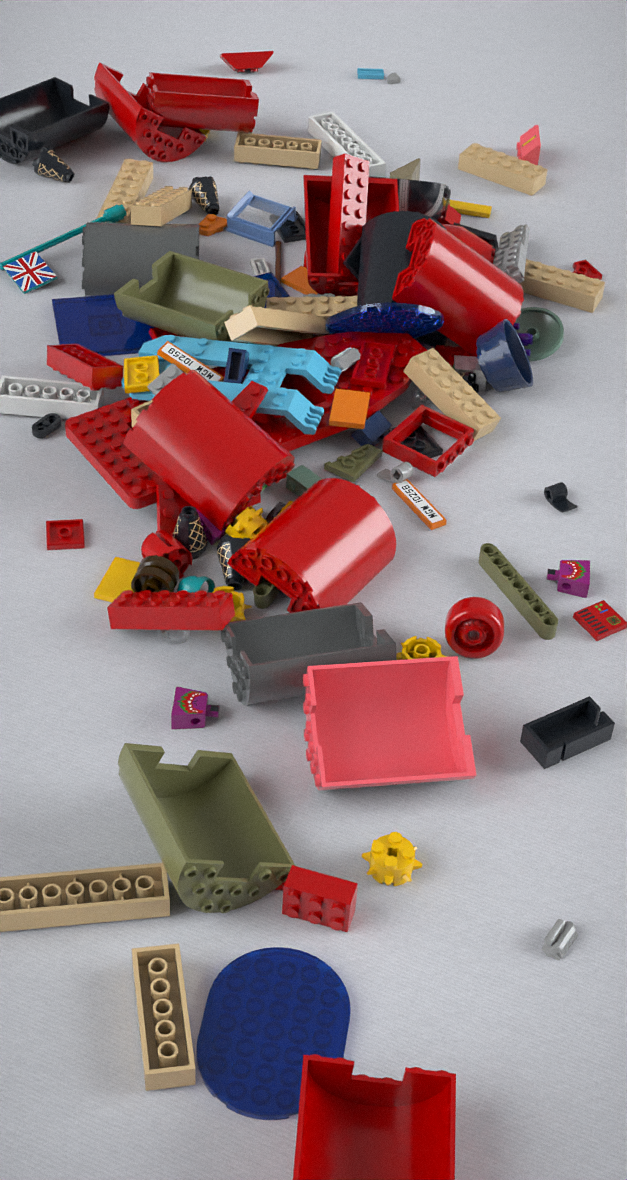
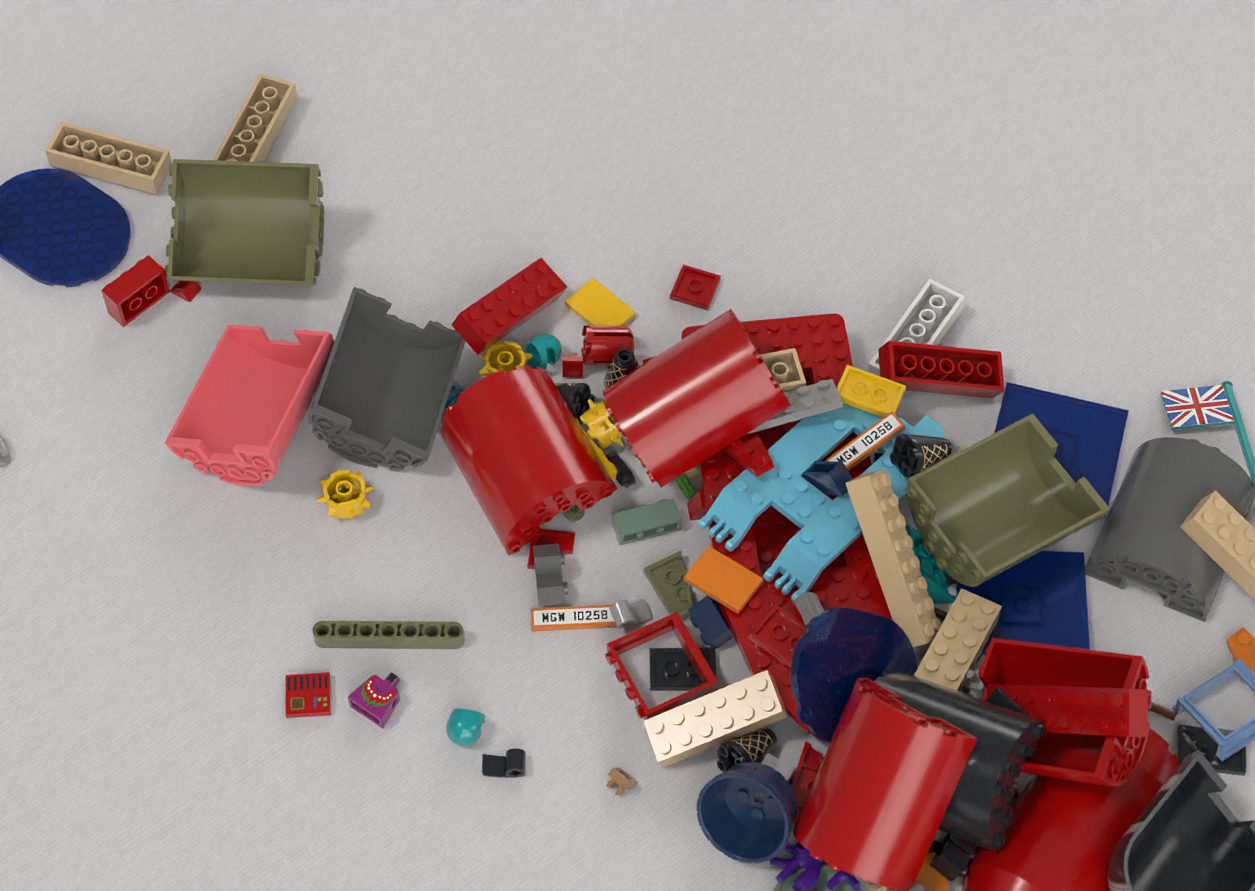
camera: 120 degrees right, 15 degrees up
(46, 425) = (877, 327): black plate -> none
(155, 574) = (568, 318): dark brown wheel -> none
(189, 328) = (917, 453): none -> black cone
(191, 709) = (401, 292): magenta torso -> none
(194, 570) = (572, 366): none -> red tile
(392, 859) = (143, 363): yellow brick -> none
(405, 518) = (549, 574): none -> dark grey brick
(474, 627) = (345, 548): red wheel -> none
(523, 440) = (623, 780): none -> medium nougat tile
(559, 521) = (464, 726): none -> teal helmet
(567, 732) = (181, 565): black piece -> none

